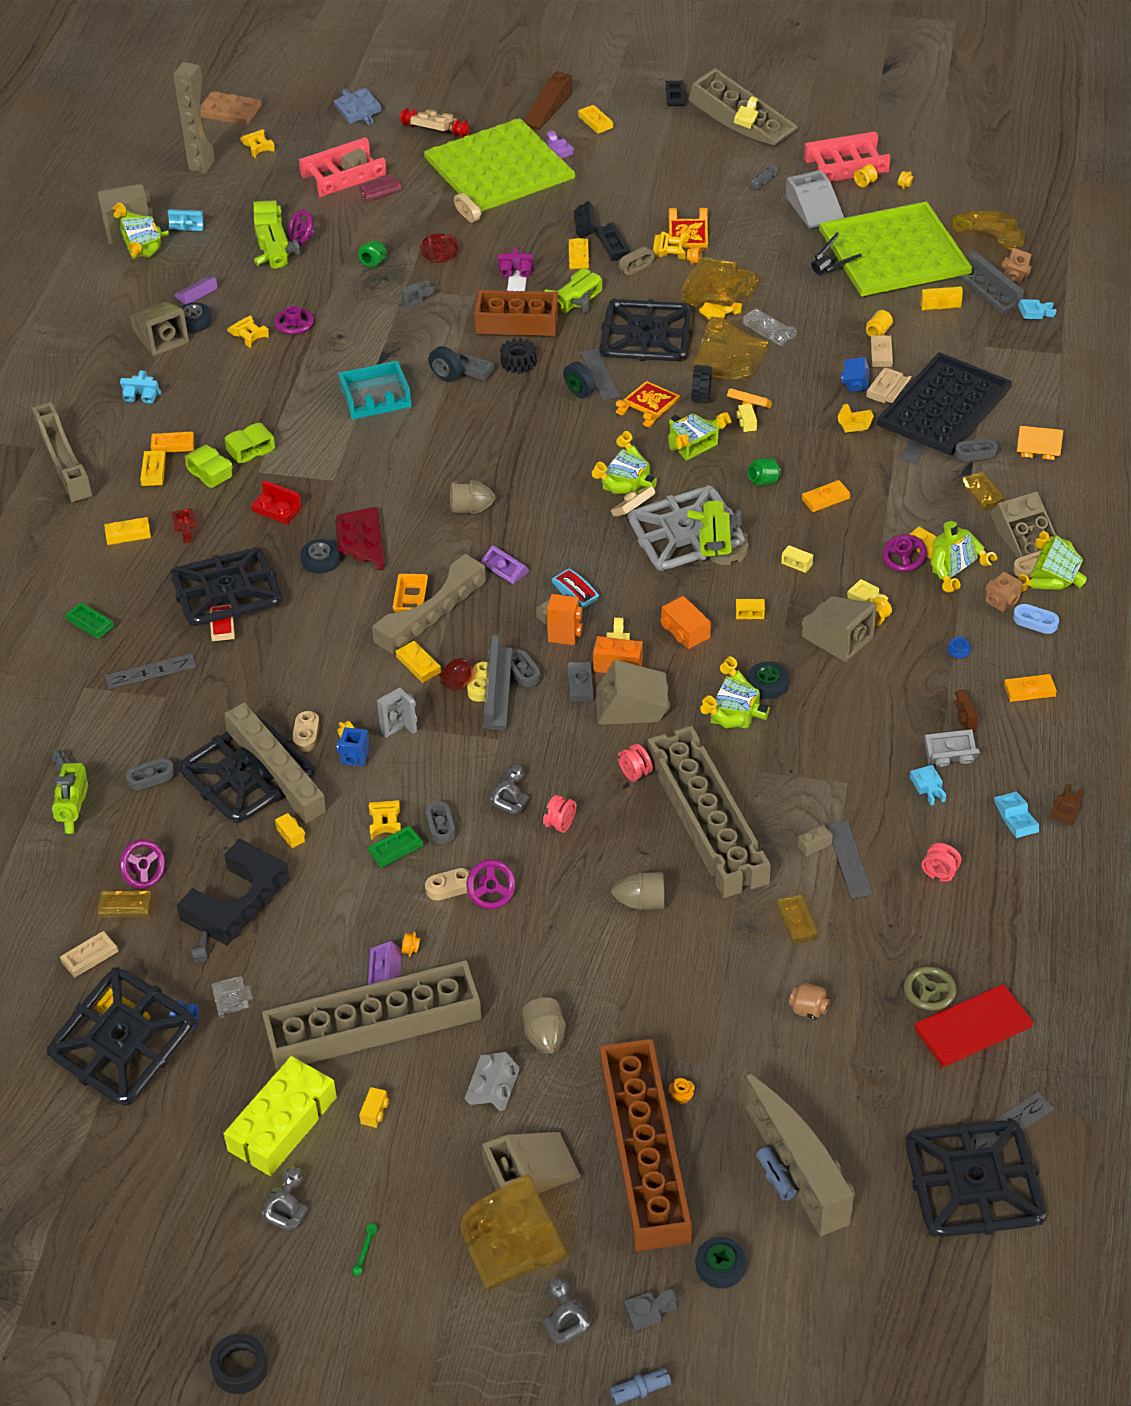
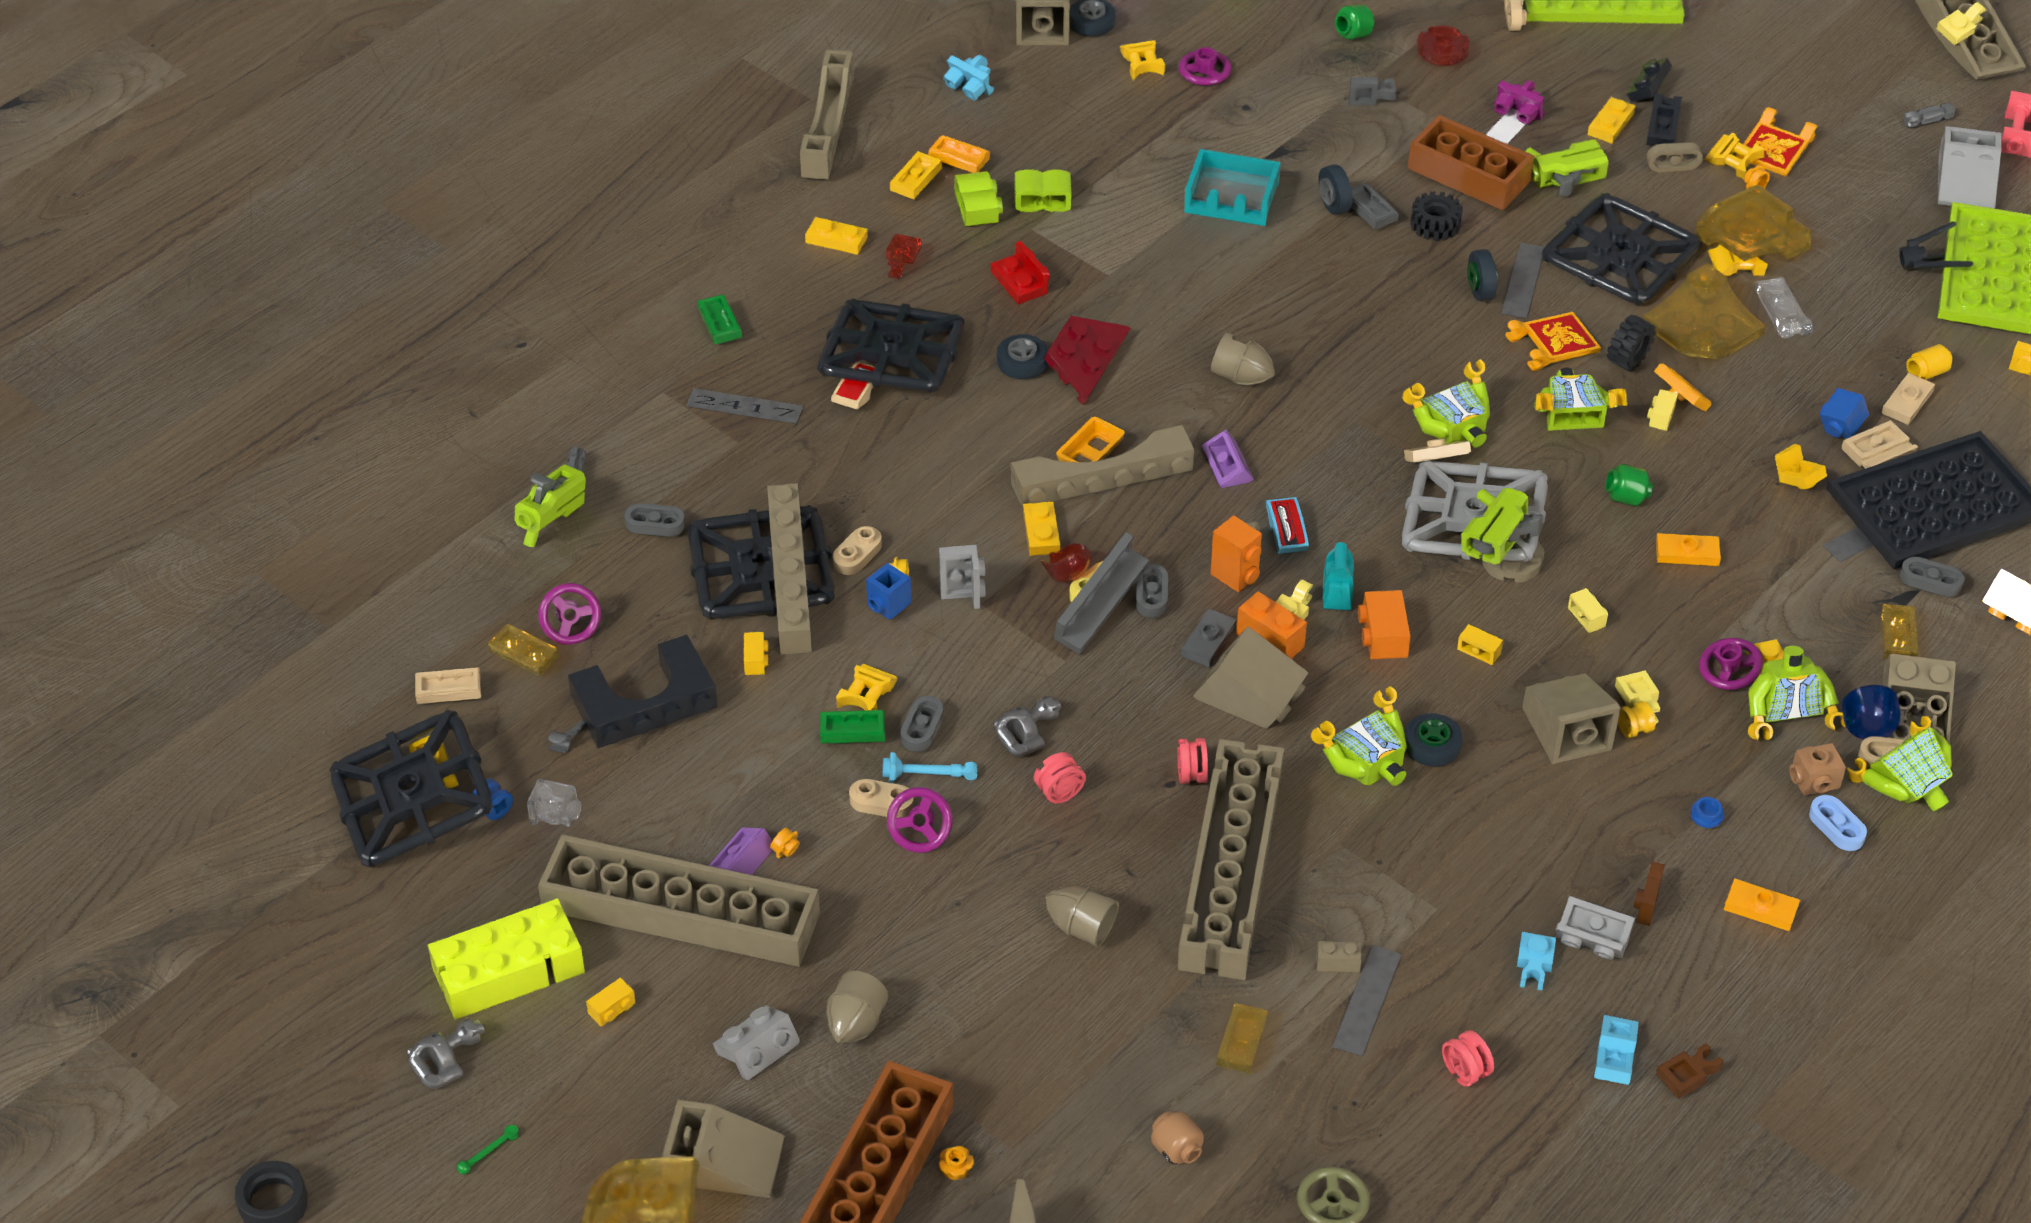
camera: 30 degrees right, 0 degrees up
(443, 859) = (893, 769): none -> medium azure piece
(635, 607) = (1338, 578): none -> teal piece
(1010, 542) = (1871, 711): none -> clear blue helmet

